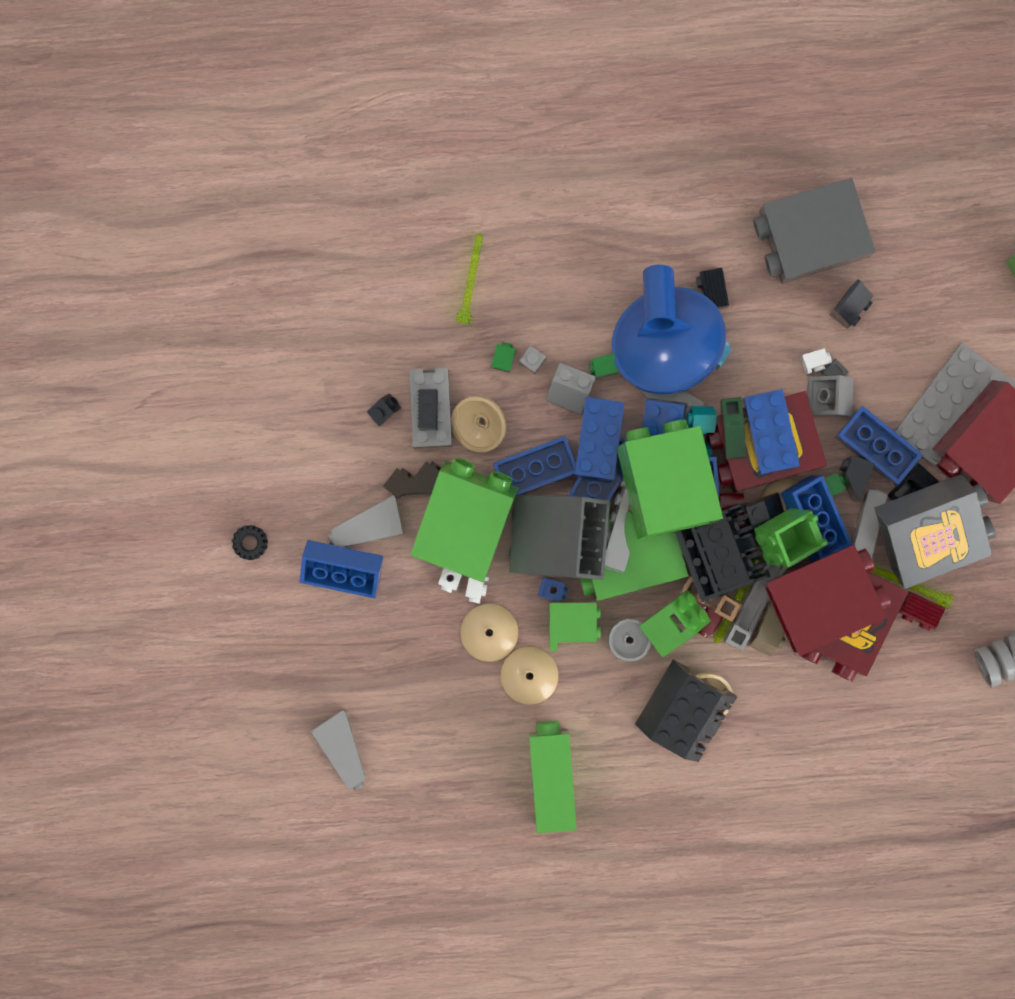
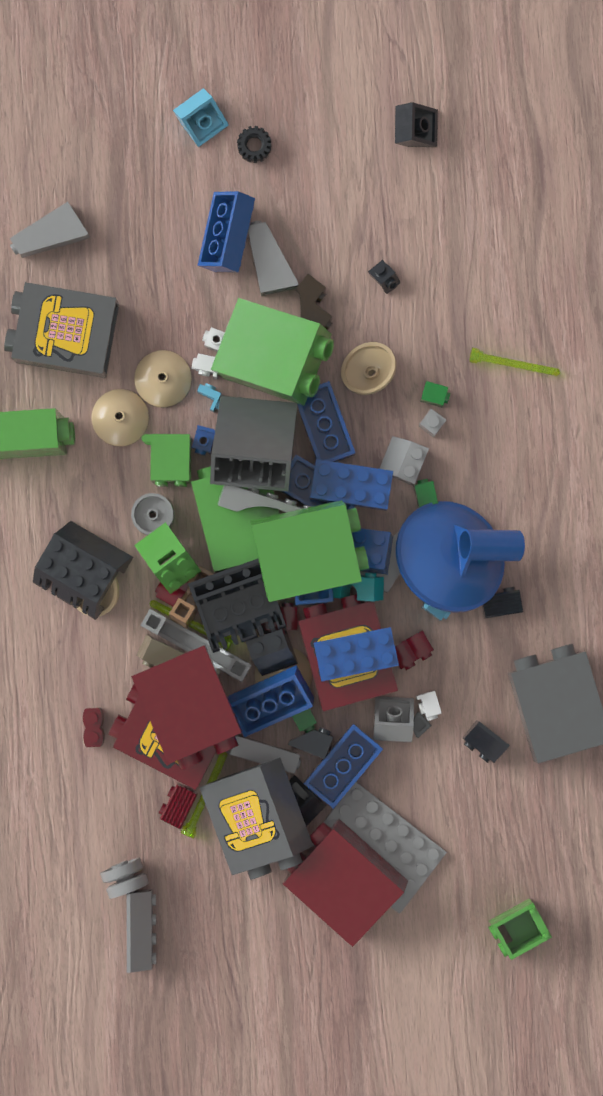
camera: 85 degrees right, 0 degrees up
(222, 597) = (201, 117): none -> medium azure slope
(230, 379) = (416, 125): none -> black slope
(428, 409) = (382, 316): black brick -> none
(438, 380) = (385, 321): light grey piece -> none
(442, 734) = (62, 329): none -> dark grey brick
(502, 584) = (209, 391): none -> medium azure bracket
(733, 427) = (360, 617): dark green slope -> none
(760, 377) = (413, 649): none -> dark red brick
(790, 537) = (250, 671): bright green container -> none
(849, 696) = (93, 721): none -> dark red brick

